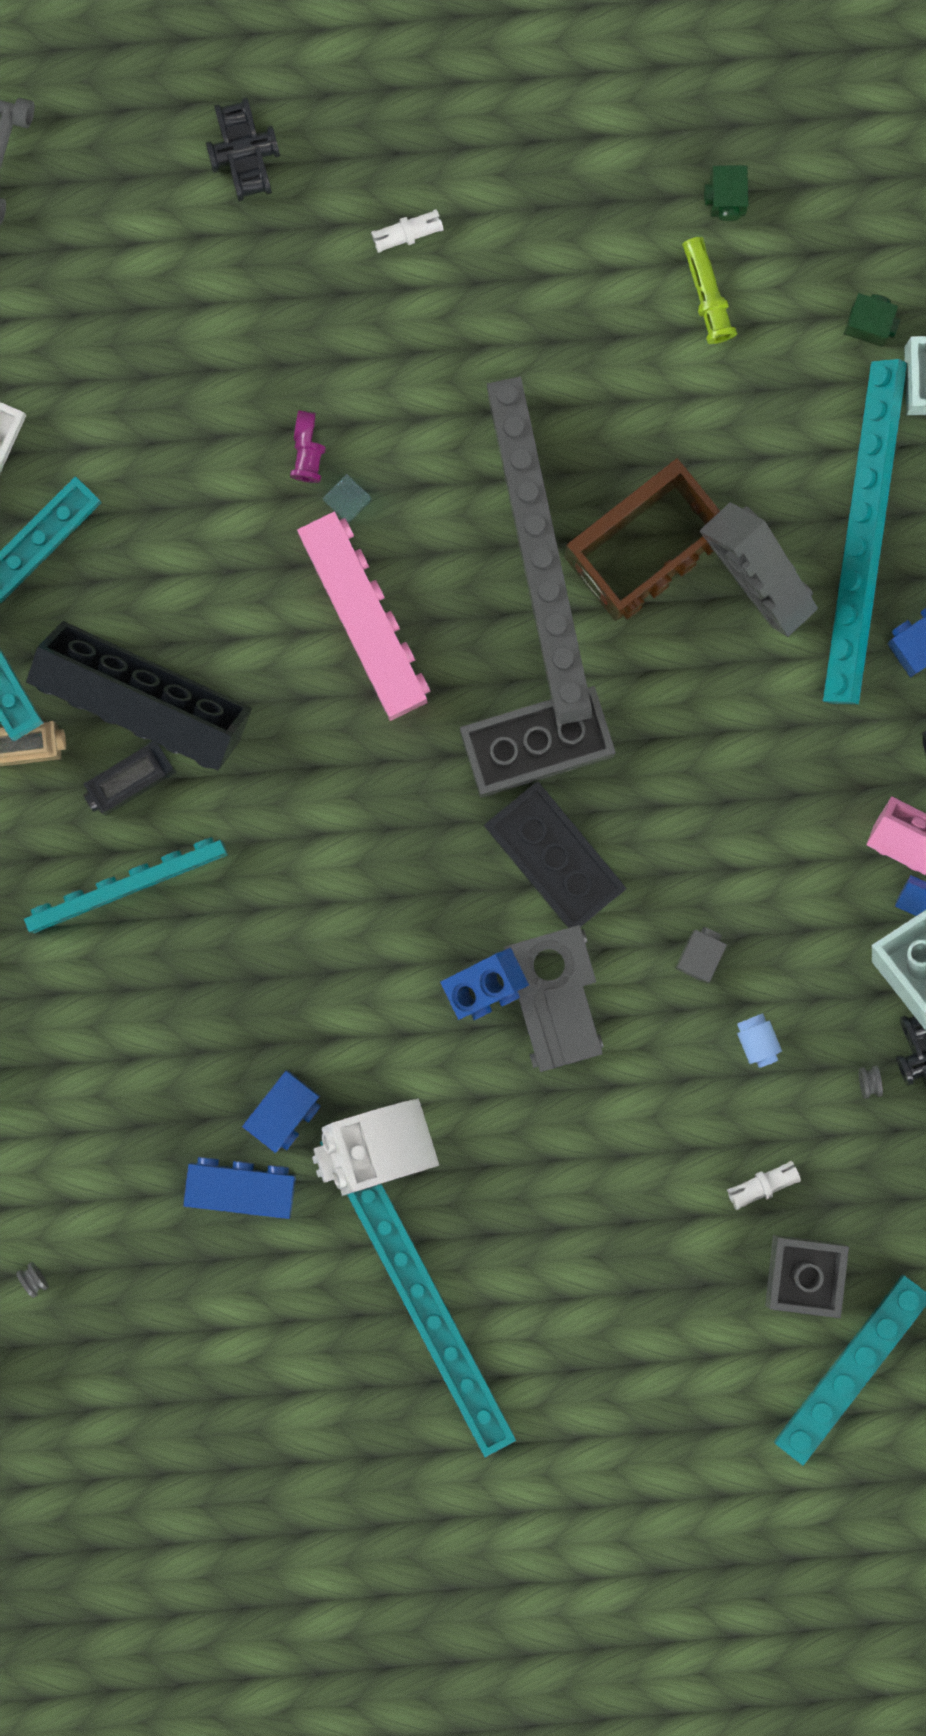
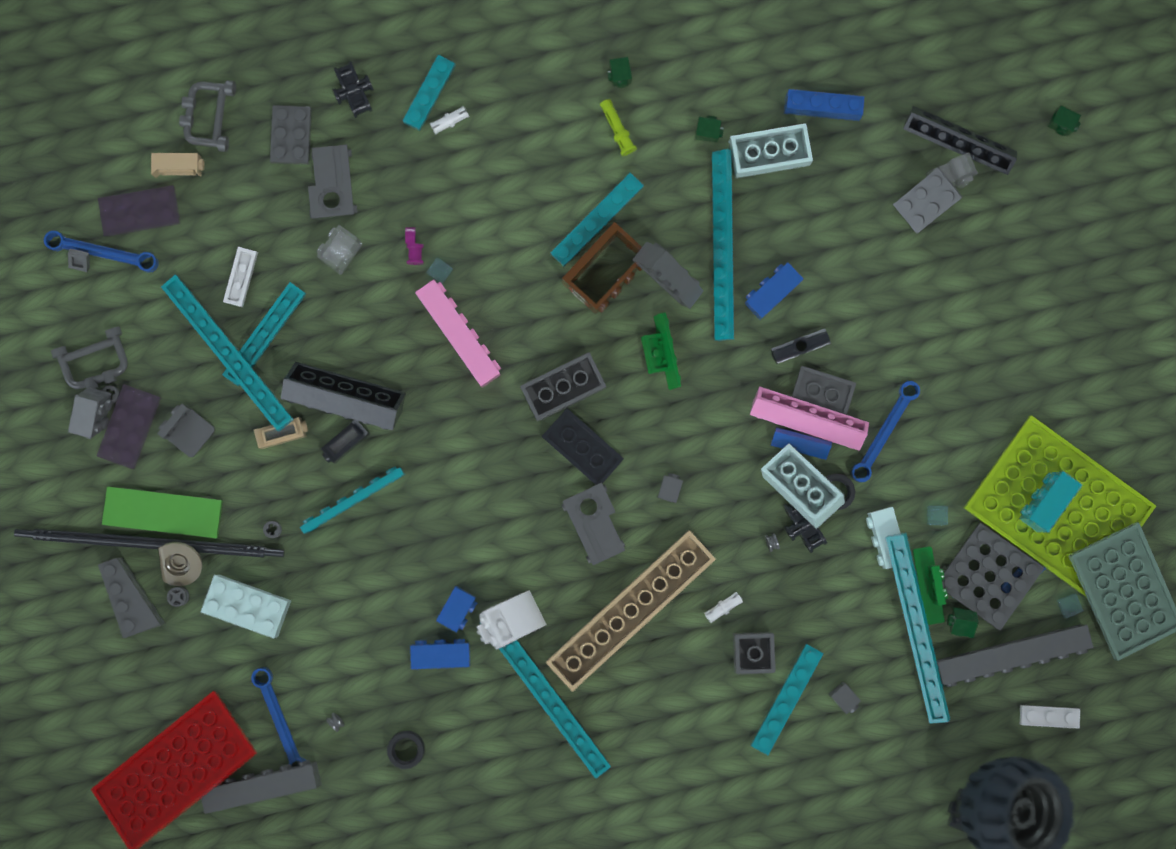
camera: 15 degrees left, 0 degrees up
(118, 213) = (290, 135): none -> dark grey plate
(124, 1350) = (405, 764): none -> black tyre
(172, 431) = (339, 249): none -> clear brick
(180, 298) = (331, 175): none -> dark grey piece
(378, 176) = (429, 92): none -> teal plate
(484, 983) = (555, 522): blue brick -> none
(539, 551) = (548, 283): dark grey brick -> none
(596, 1163) = (630, 610): none -> tan brick
(644, 451) = (597, 219): none -> teal plate
(721, 707) = (660, 352): none -> green bracket
(759, 1040) = (708, 529): light blue brick -> none

